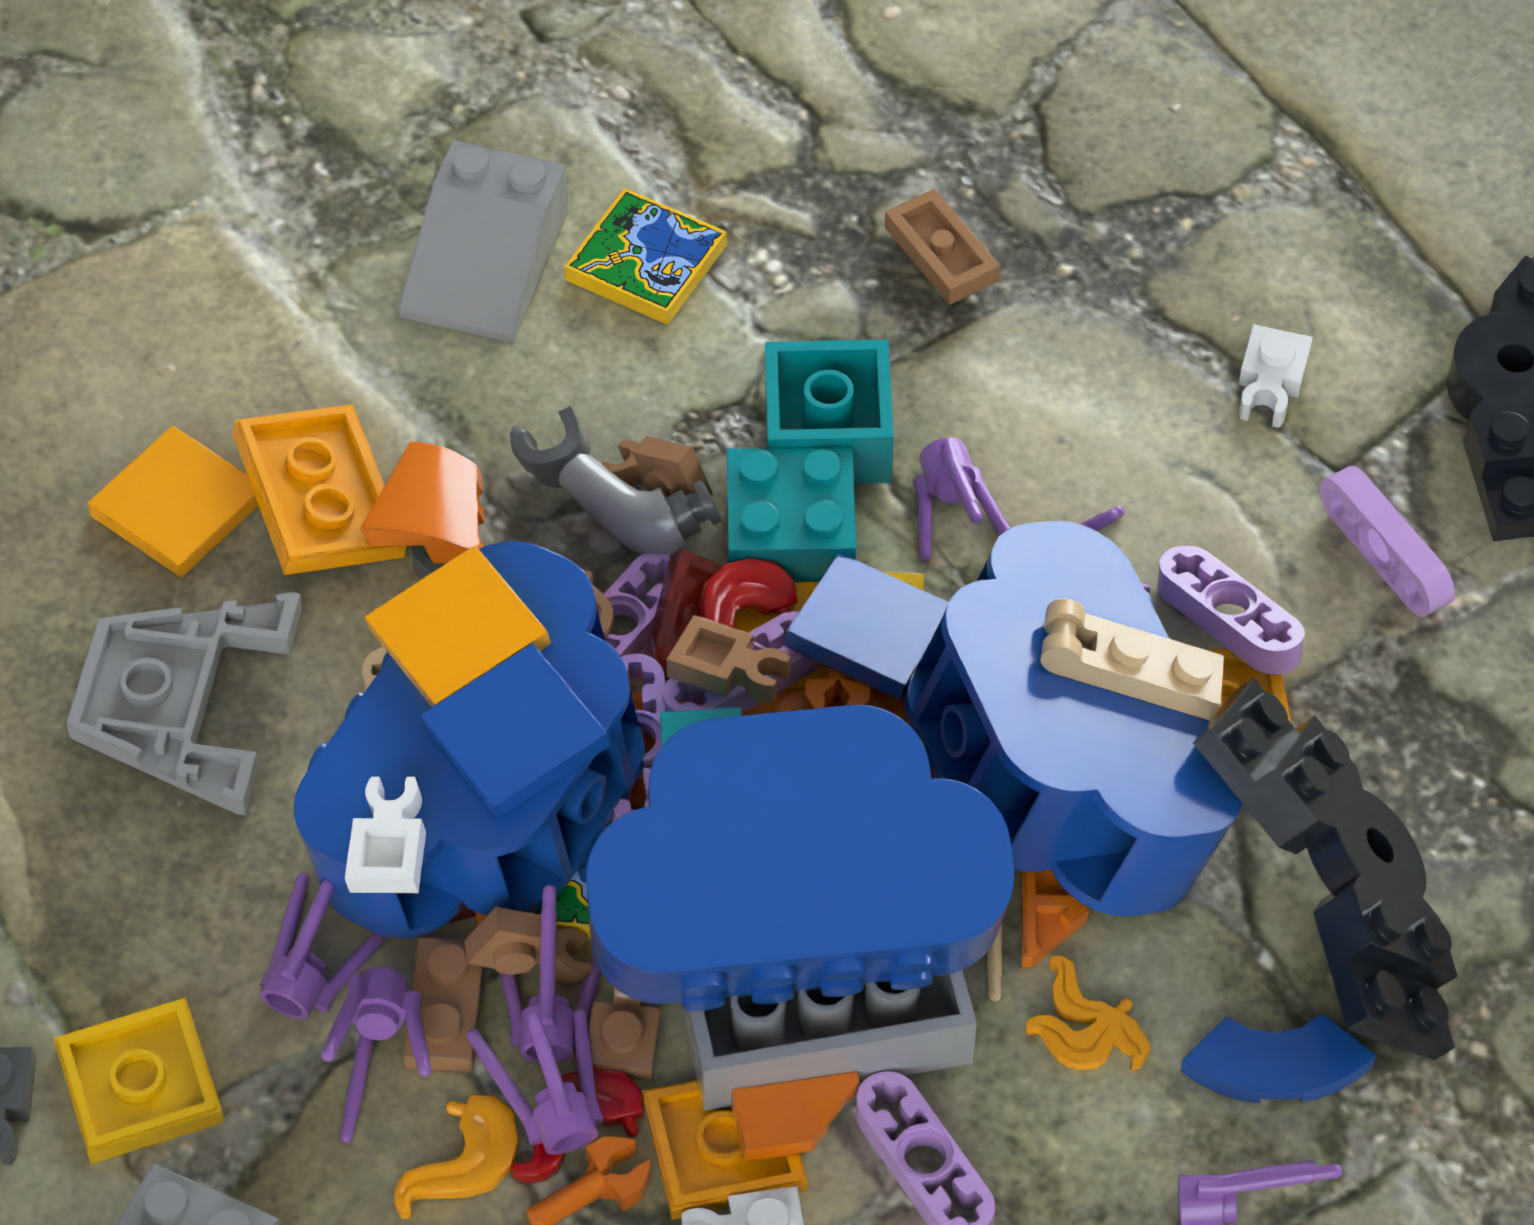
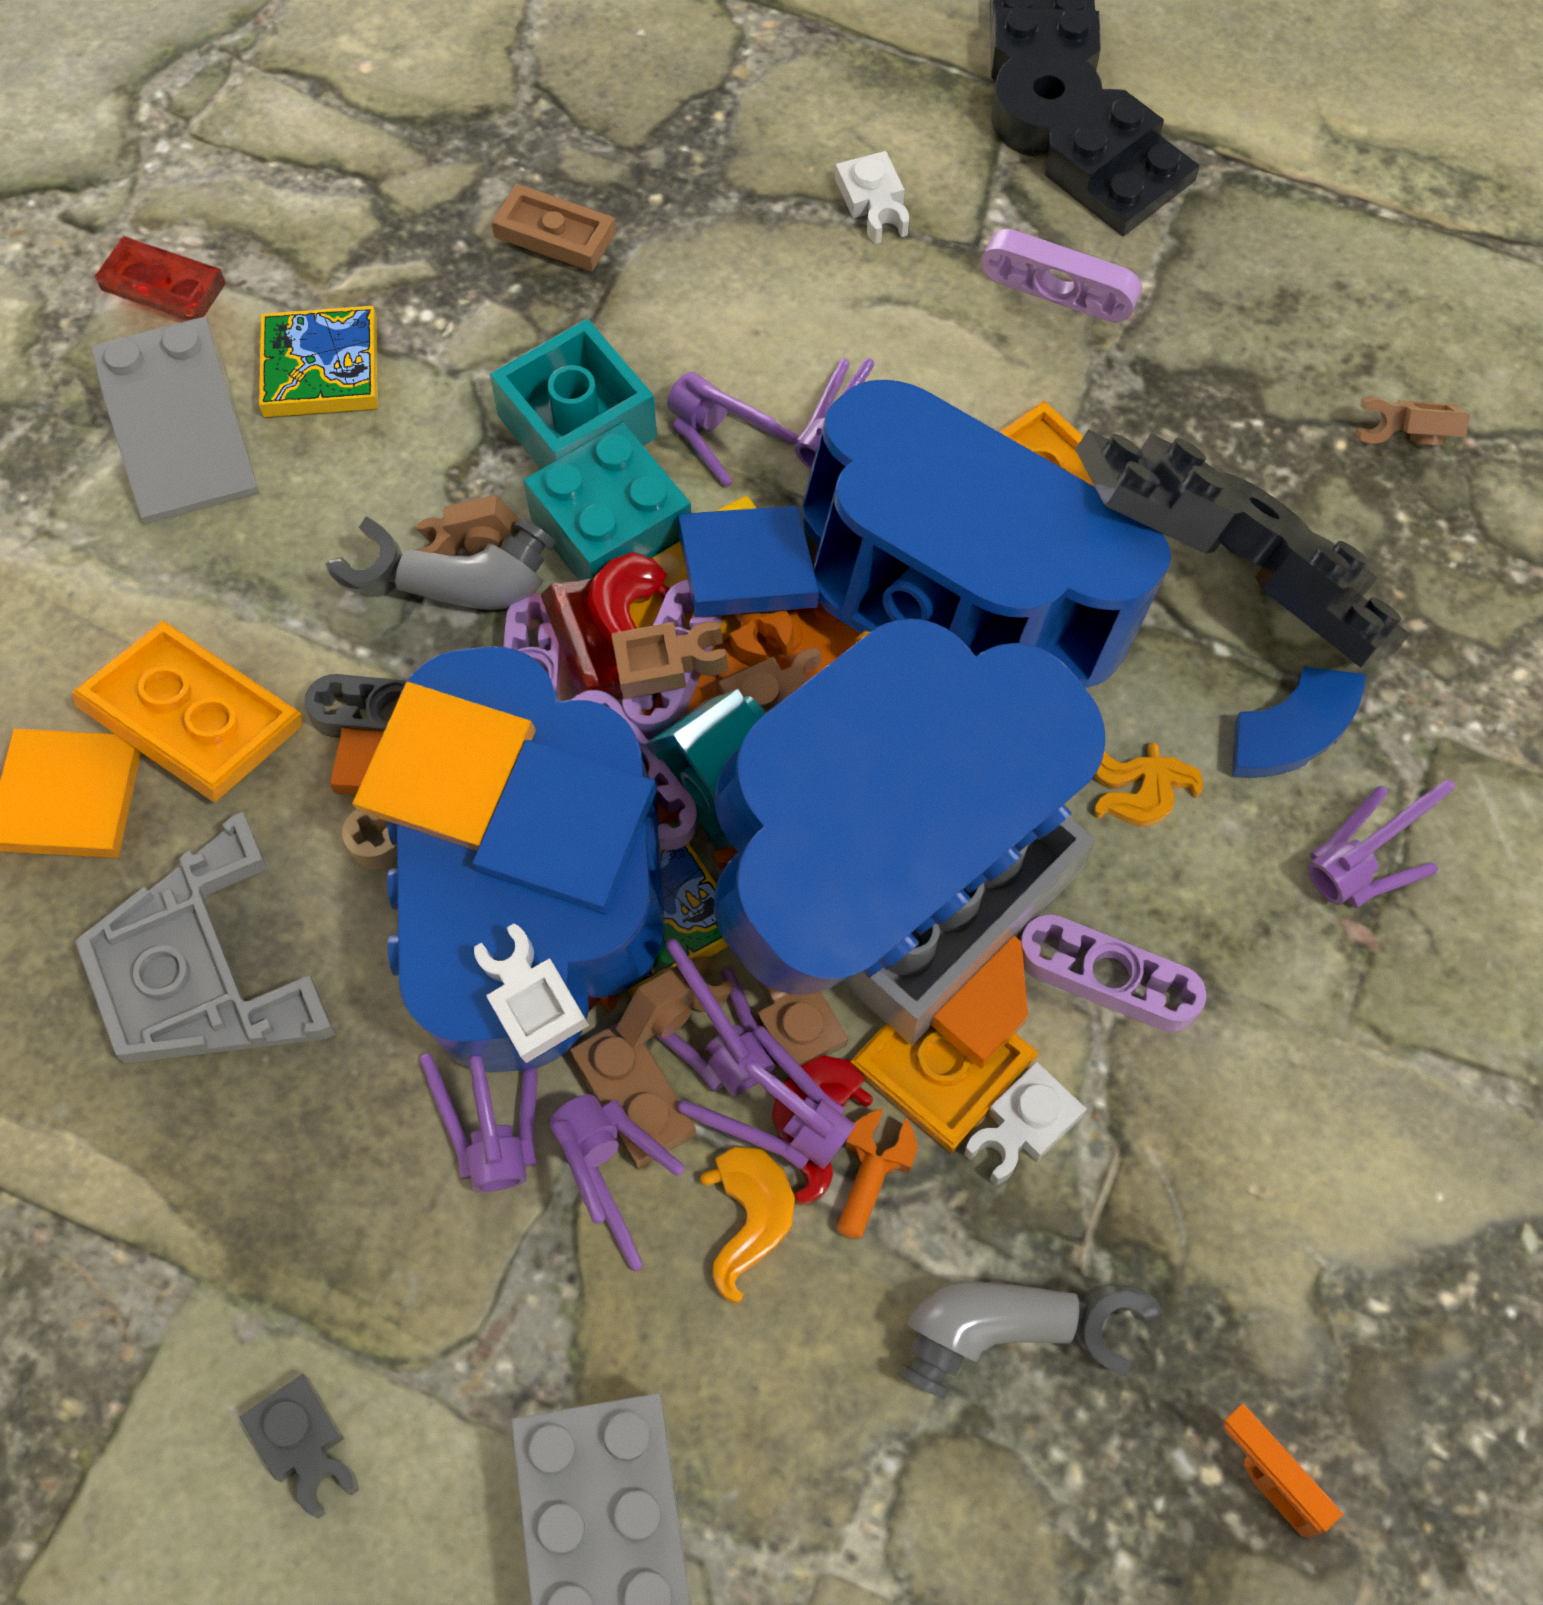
camera: 35 degrees left, 10 degrees up
(138, 1080) = (418, 1337): yellow tile -> none
(429, 504) = (302, 669): orange slope -> none
(562, 113) = (160, 279): none -> clear red plate
(1131, 661) = (1003, 467): tan plate -> none
(1260, 636) = (1035, 382): lavender beam -> none

